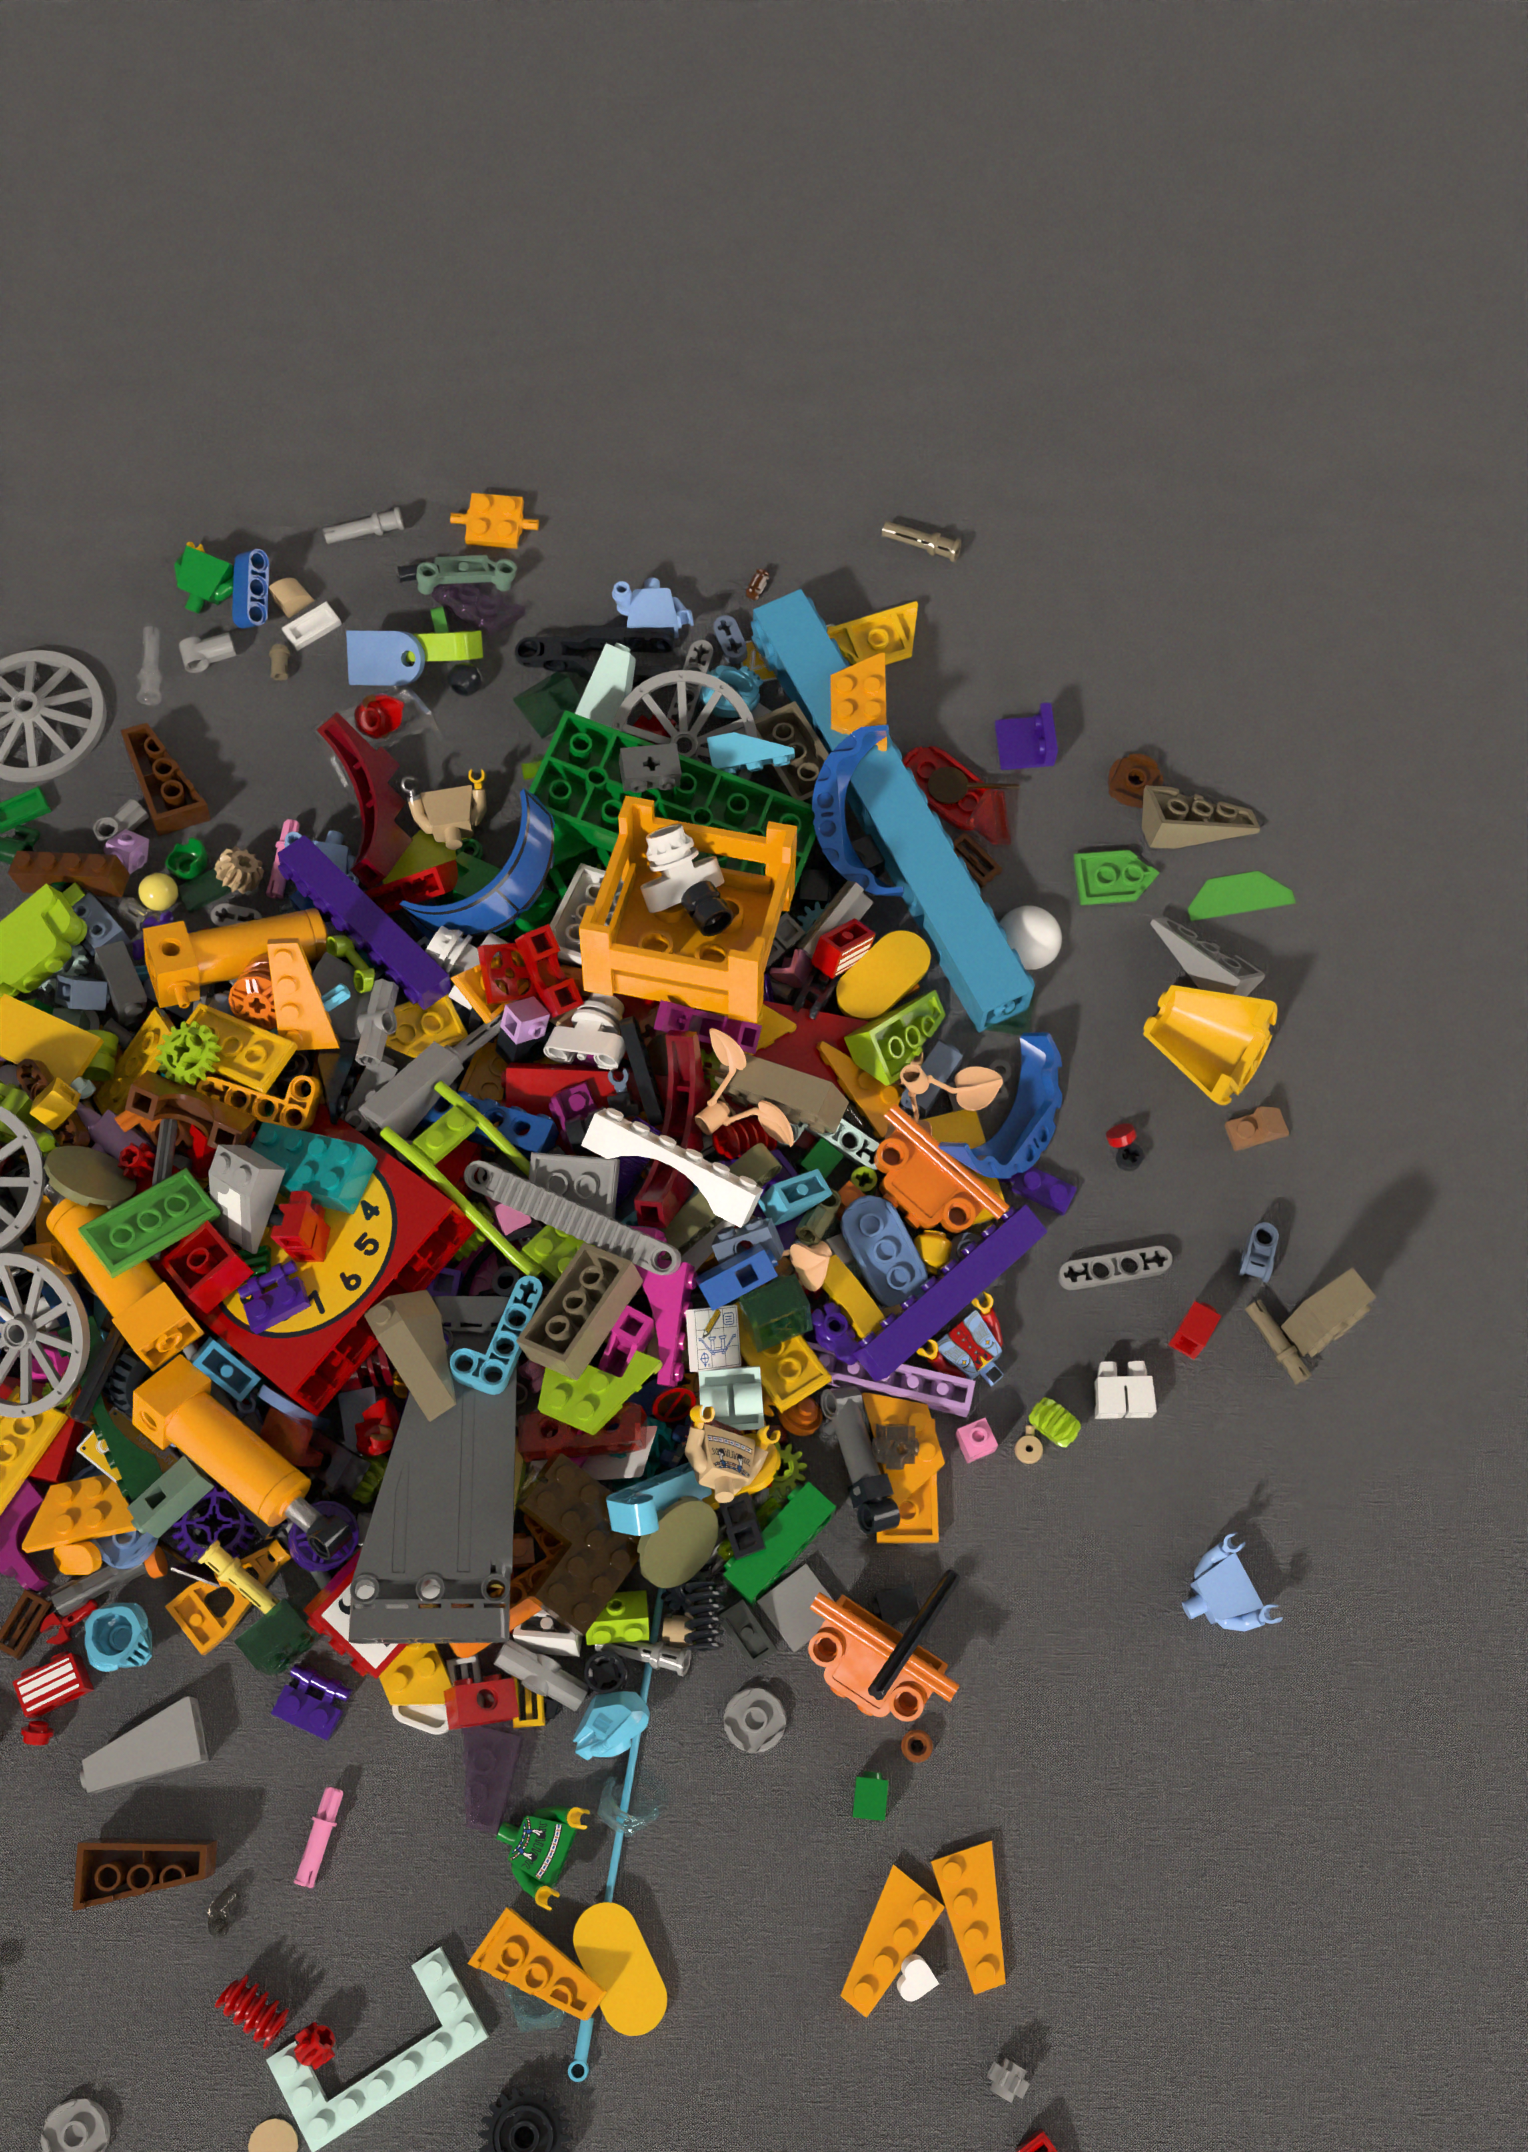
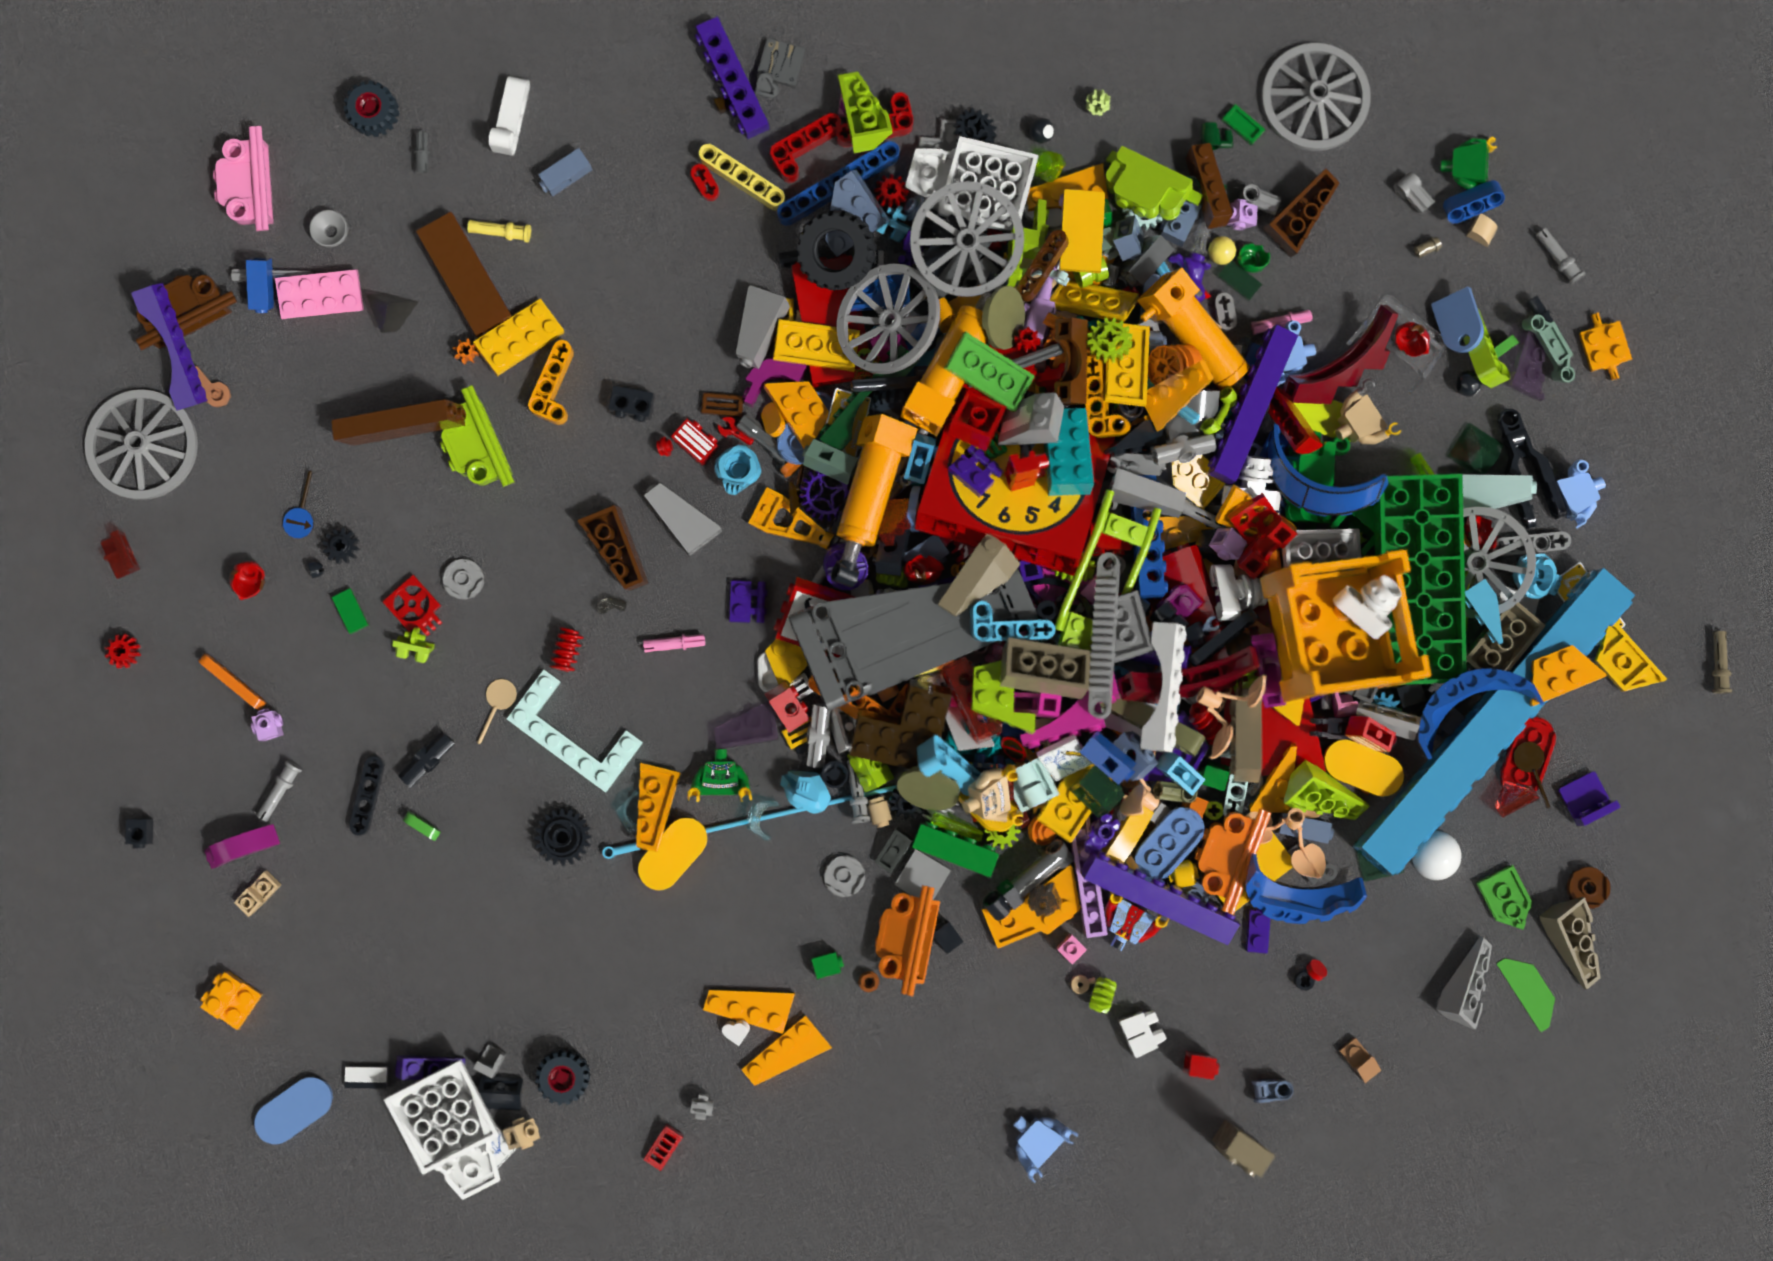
camera: 60 degrees right, 15 degrees up
(55, 1103) = (1043, 268): yellow panel -> none
(149, 675) = (1379, 162): clear pin -> none
(231, 1571) = (802, 518): light yellow pin -> none
(239, 870) = (1259, 297): tan gear -> none
(277, 1638) = (775, 565): clear green brick -> none
(311, 626) = (1466, 255): white tile -> none
(314, 2045) = (562, 694): red gear -> none
(637, 762) = (1451, 556): dark grey brick -> none
(703, 1616) = (891, 822): black piece -> none
(707, 908) = (1350, 636): black wheel -> none
(725, 641) = (1583, 560): sand blue beam -> none
(742, 1526) = (954, 825): black slope -> none
(757, 584) = (1633, 557): reddish brown piece -> none
(913, 1635) = (932, 956): black axle -> none
(995, 868) = (1471, 810): reddish brown tile -> none
(1116, 1272) = (1220, 999): light grey beam -> none
(1213, 1037) = (1410, 1007): yellow cone -> none
(1278, 1342) = (1209, 1130): dark tan pin -> none

